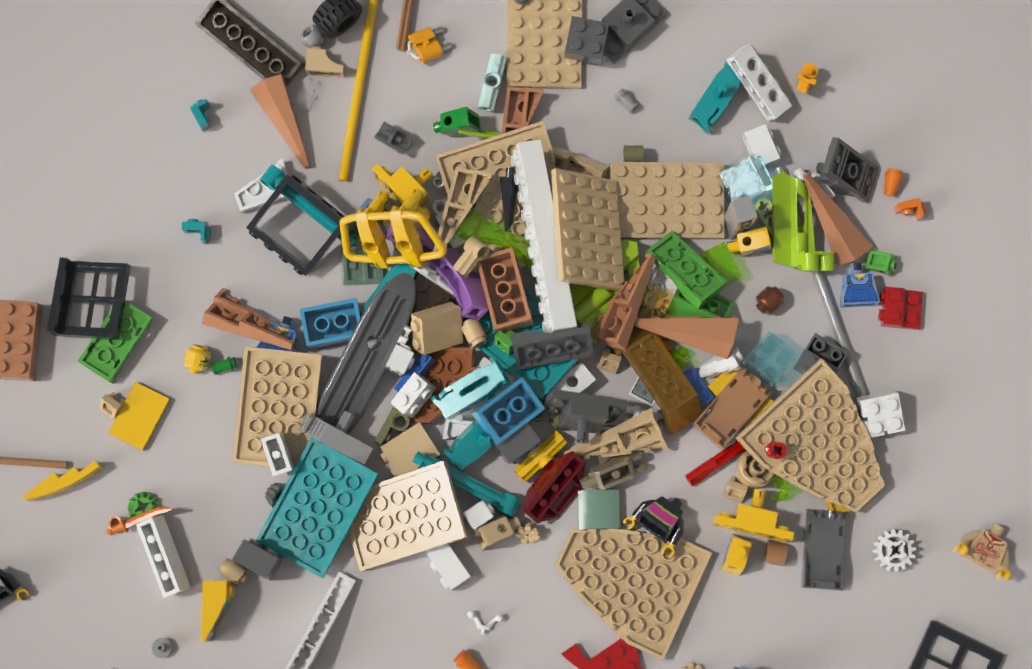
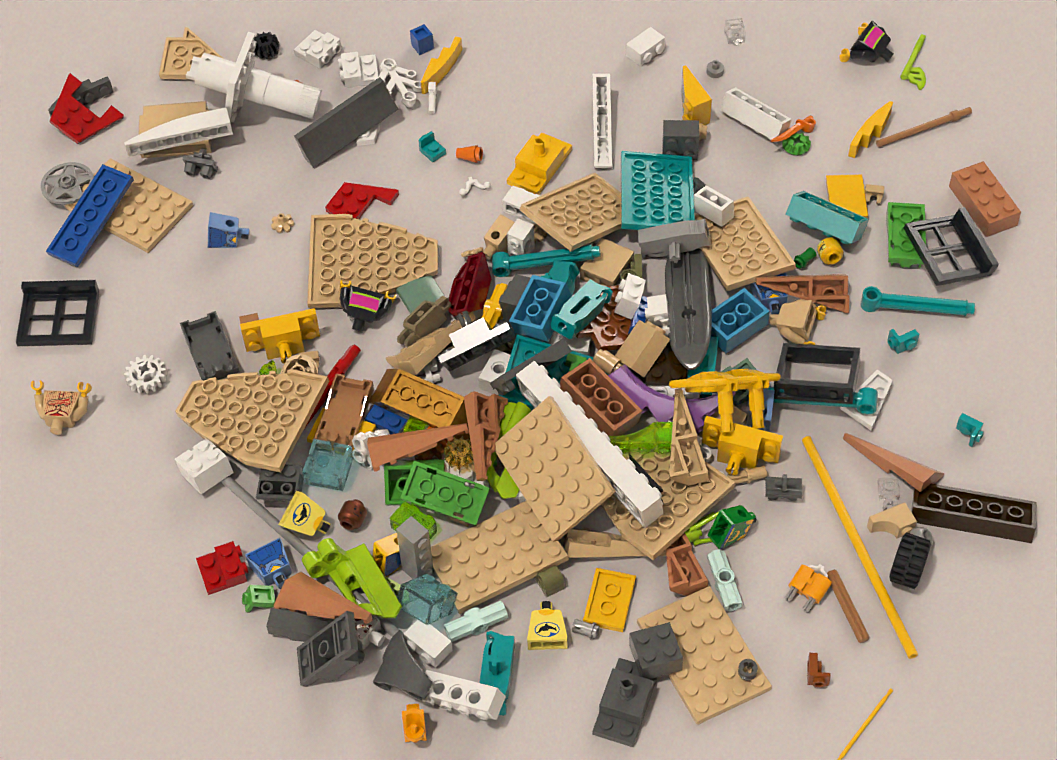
camera: 155 degrees right, 25 degrees down
(158, 261) = (874, 299): none -> teal piece
(178, 390) = (826, 217): none -> teal brick
(277, 296) = (797, 320): none -> tan torso
(405, 615) = (538, 162): none -> yellow brick
(412, 169) = (748, 475): none -> tan axle
(473, 252) = (646, 403): tan piece -> none
(592, 117) = (609, 599): none -> yellow tile
(658, 114) = (546, 629): none -> light yellow torso
(712, 150) = (476, 621): none -> light aqua piece
(736, 555) = (284, 302): yellow torso -> none
(781, 451) = (285, 375): red bush -> none
(800, 127) = (402, 670): none -> dark grey panel
(815, 314) = (304, 516): none -> light yellow torso
(862, 217) = (293, 624): none -> dark grey slope
(893, 179) = (280, 677): orange cone -> none
(907, 207) = (254, 659): orange bracket -> none

